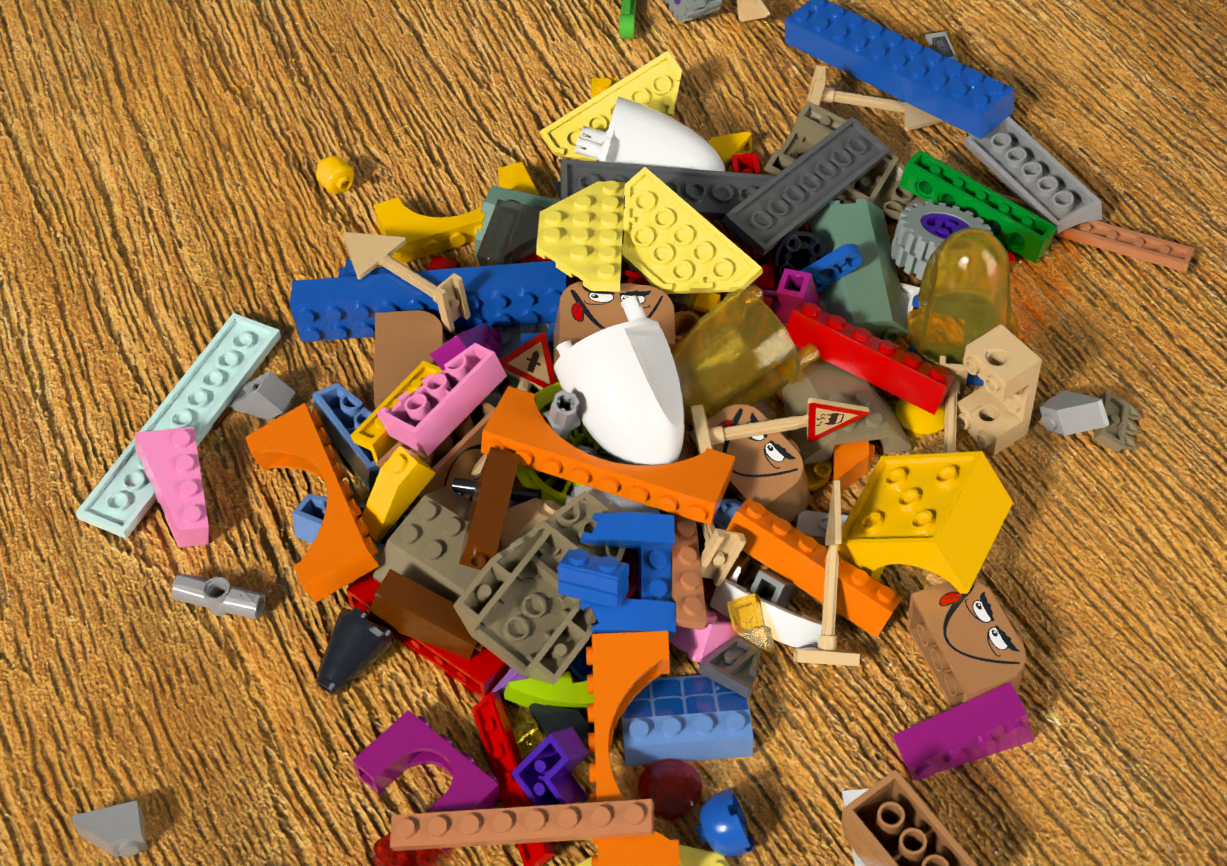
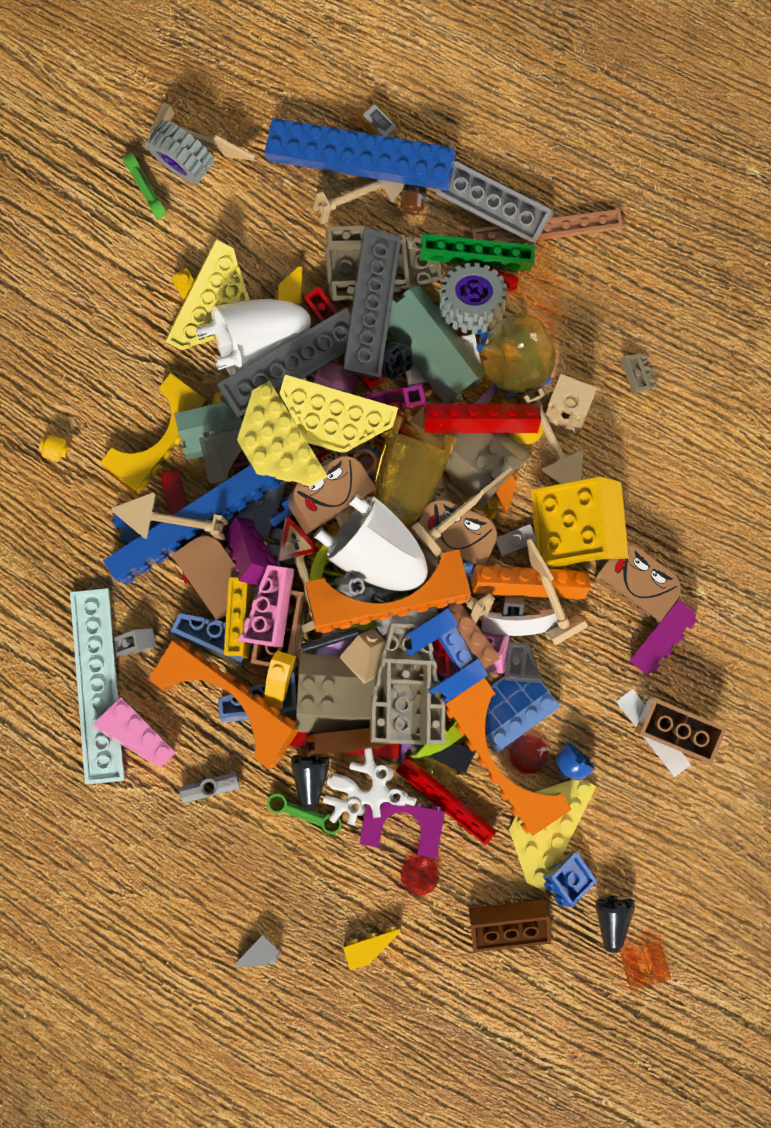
camera: 30 degrees left, 30 degrees up
(313, 695) = (302, 813): none -> bright green piece
(384, 708) = (374, 796): none -> white plant
(489, 508) = (346, 668): reddish brown slope -> none
(522, 825) = (476, 832): nougat plate -> none
(548, 768) = (471, 793): dark purple brick -> none
(593, 578) = (432, 677): blue brick -> none
(749, 621) = (516, 636): clear yellow slope -> none
(839, 256) = (419, 364): blue beam -> none
(931, 136) = (412, 201): none -> reddish brown head
(1073, 413) = (613, 385): light grey slope -> none

